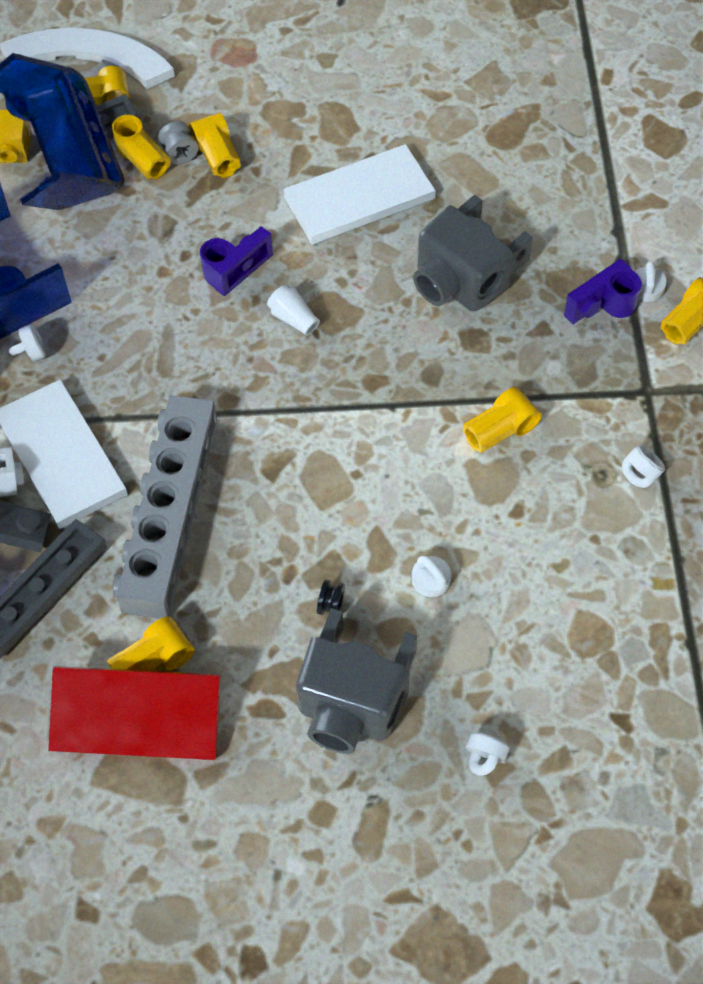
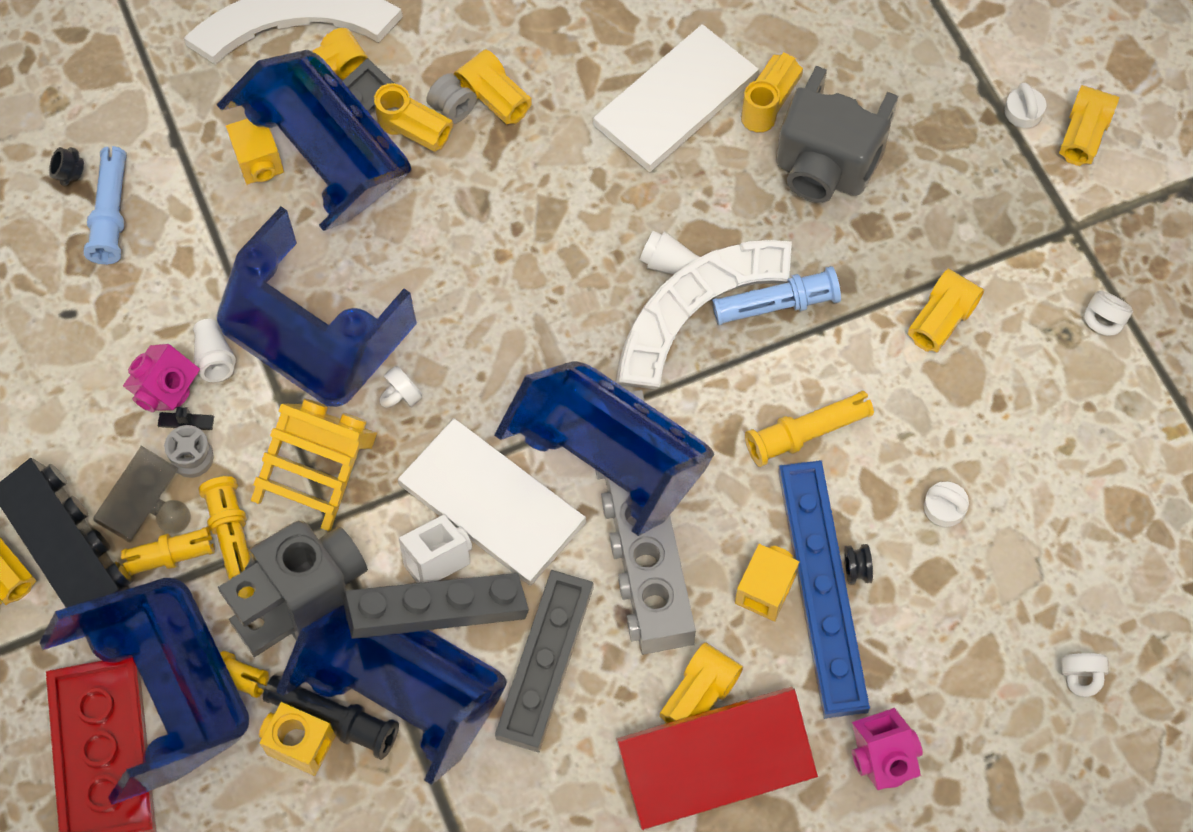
camera: 20 degrees left, 5 degrees up
(165, 418) = (612, 433): none -> clear blue windscreen
(228, 265) = (582, 218): dark purple plate -> none
(247, 586) = (767, 581): none -> yellow brick
(278, 756) = (886, 749): none -> dark pink brick
(292, 340) = (685, 293): none -> white tile
(294, 613) = (823, 590): none -> blue tile
(326, 477) = (791, 433): none -> yellow pin
(351, 688) = (929, 652): dark grey piece -> none
(382, 369) = (796, 293): none -> light blue pin
(425, 208) = (769, 92): none -> yellow piece
(612, 289) = (989, 132): dark purple plate -> none

